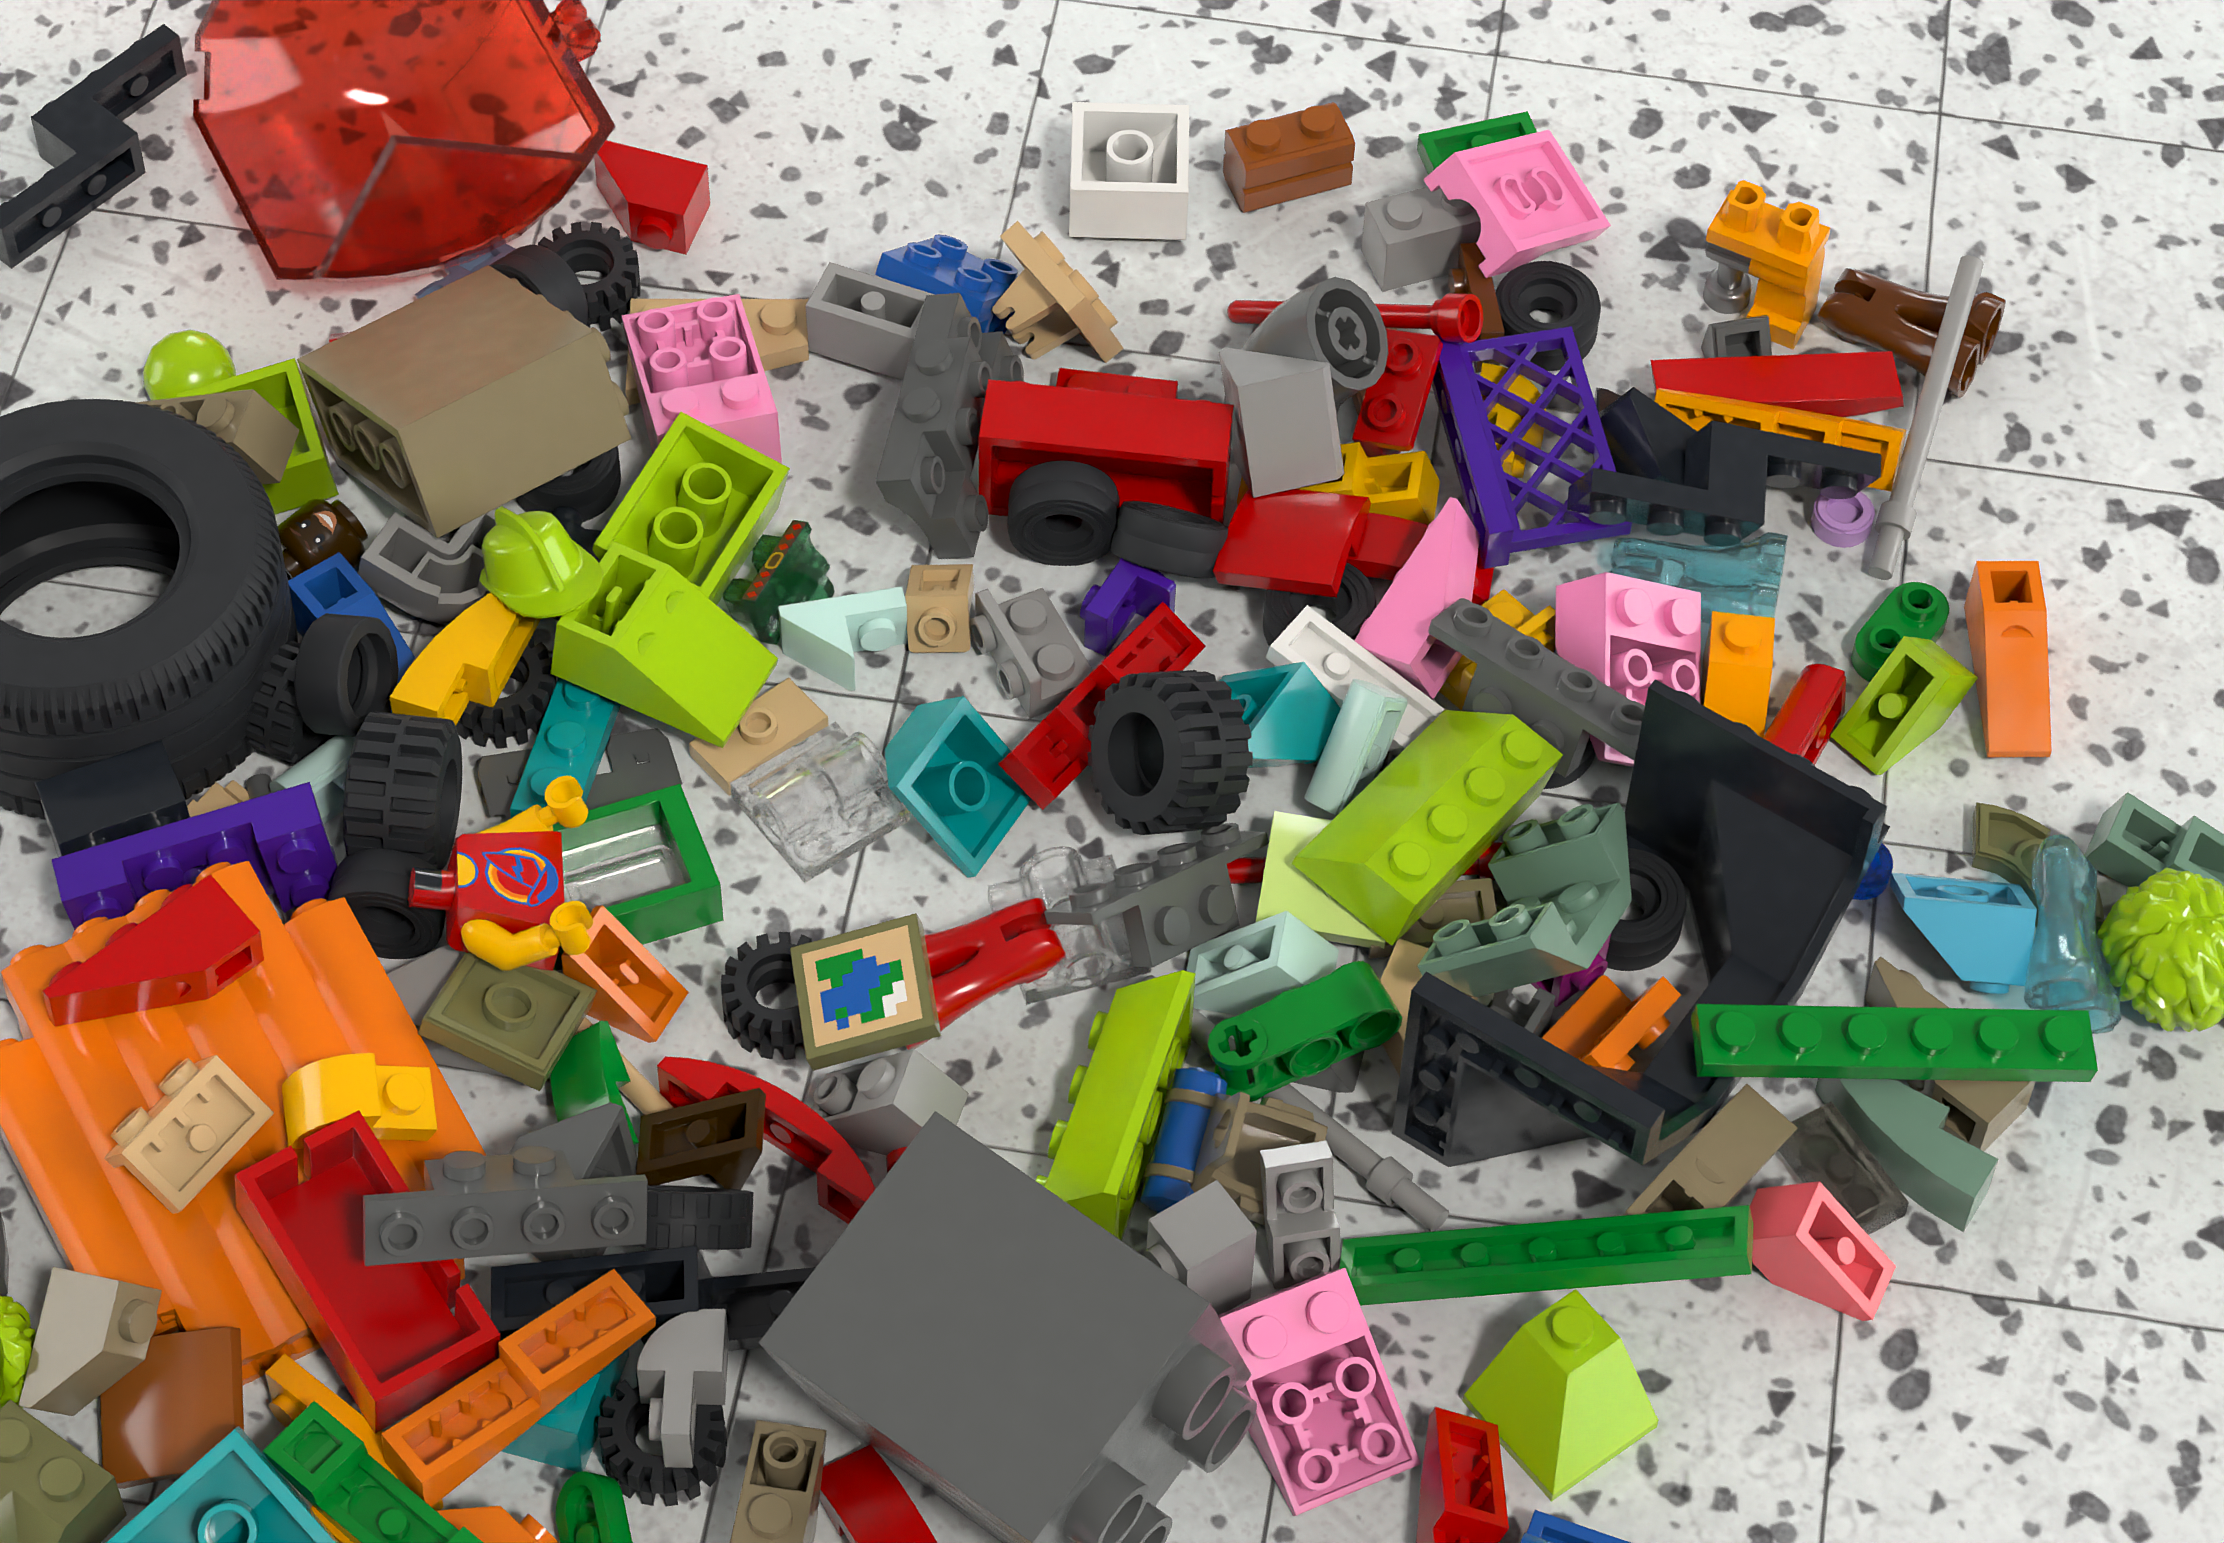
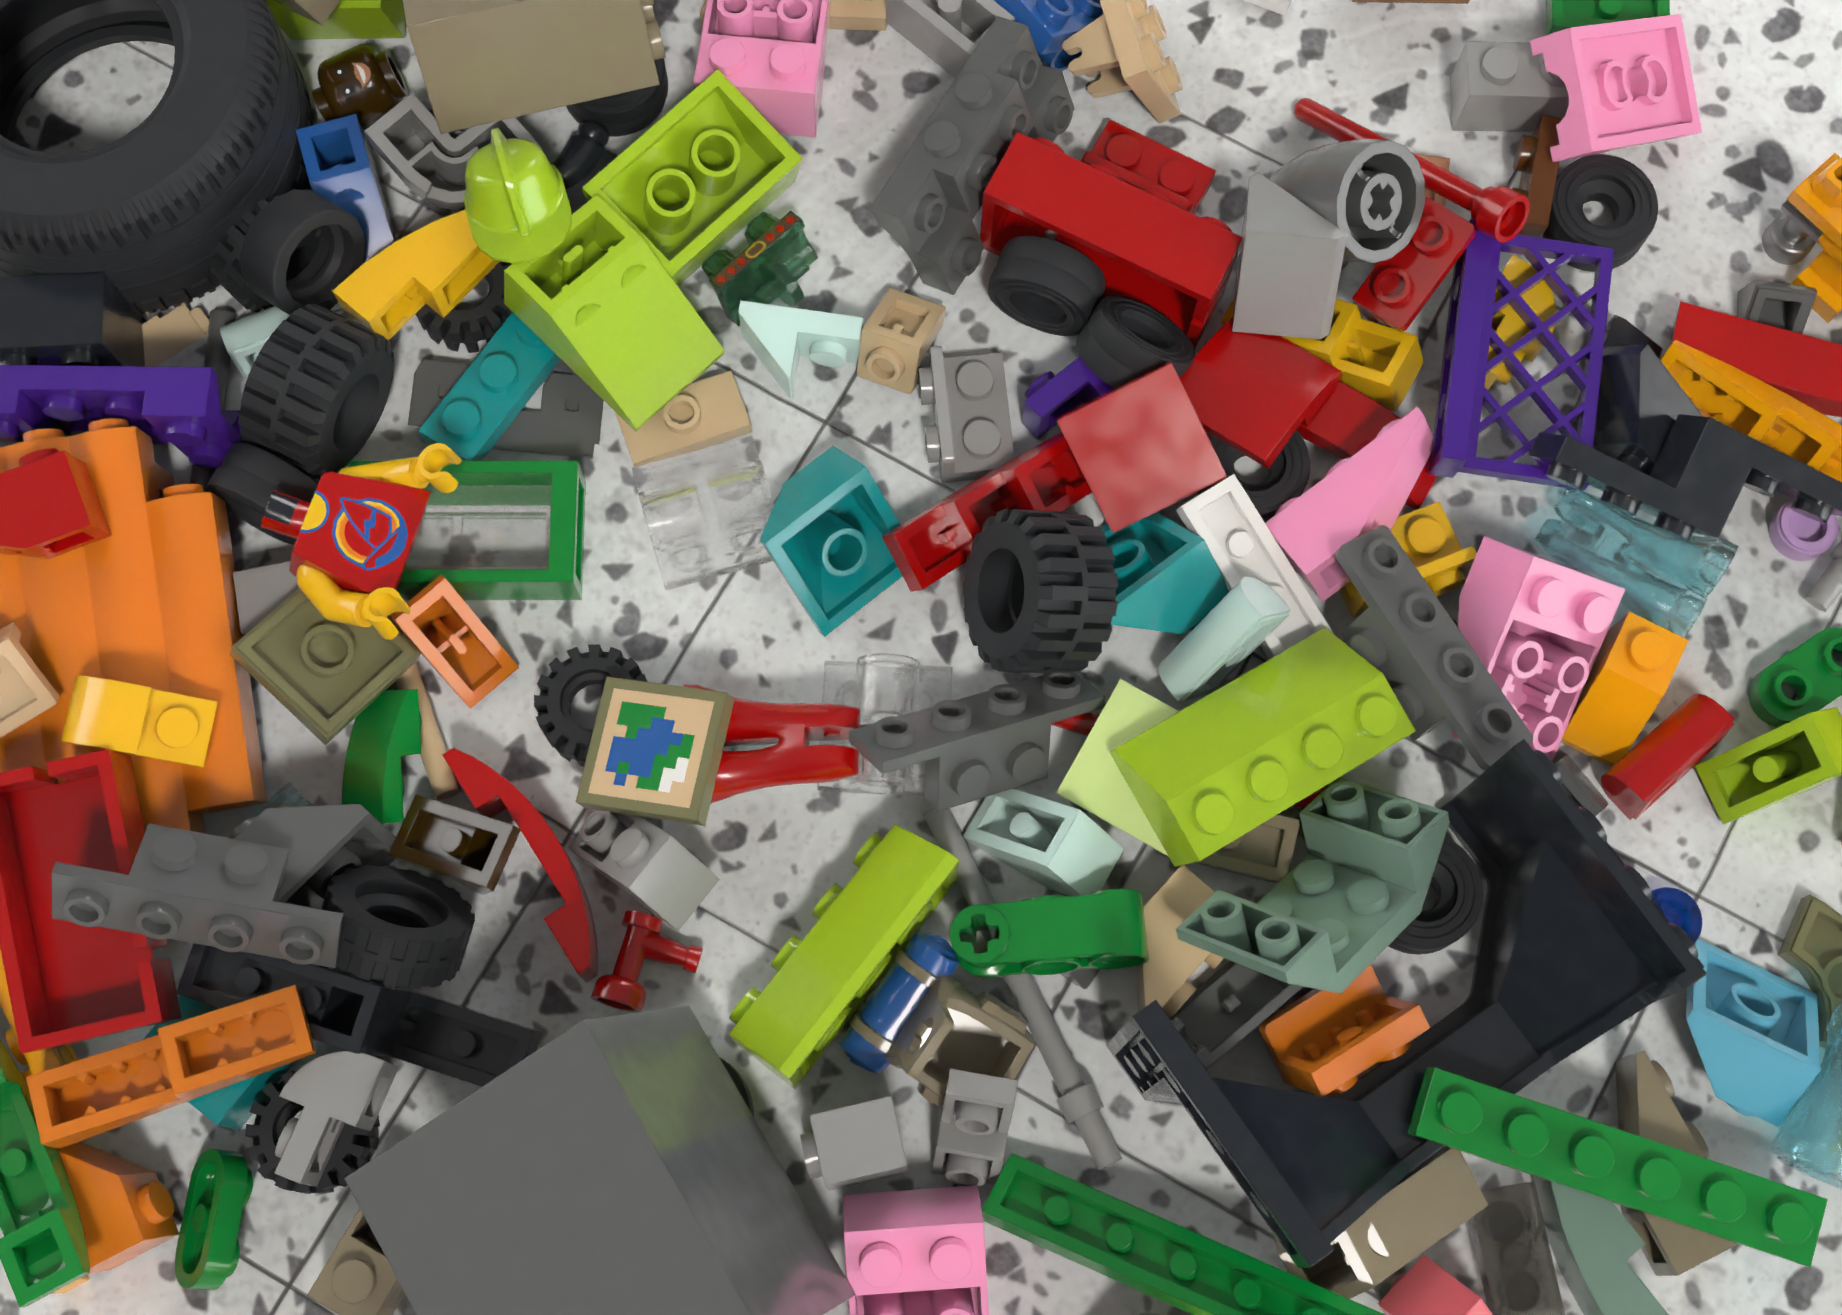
camera: 20 degrees right, 20 degrees up
(1212, 609) = (1141, 447): none -> tile

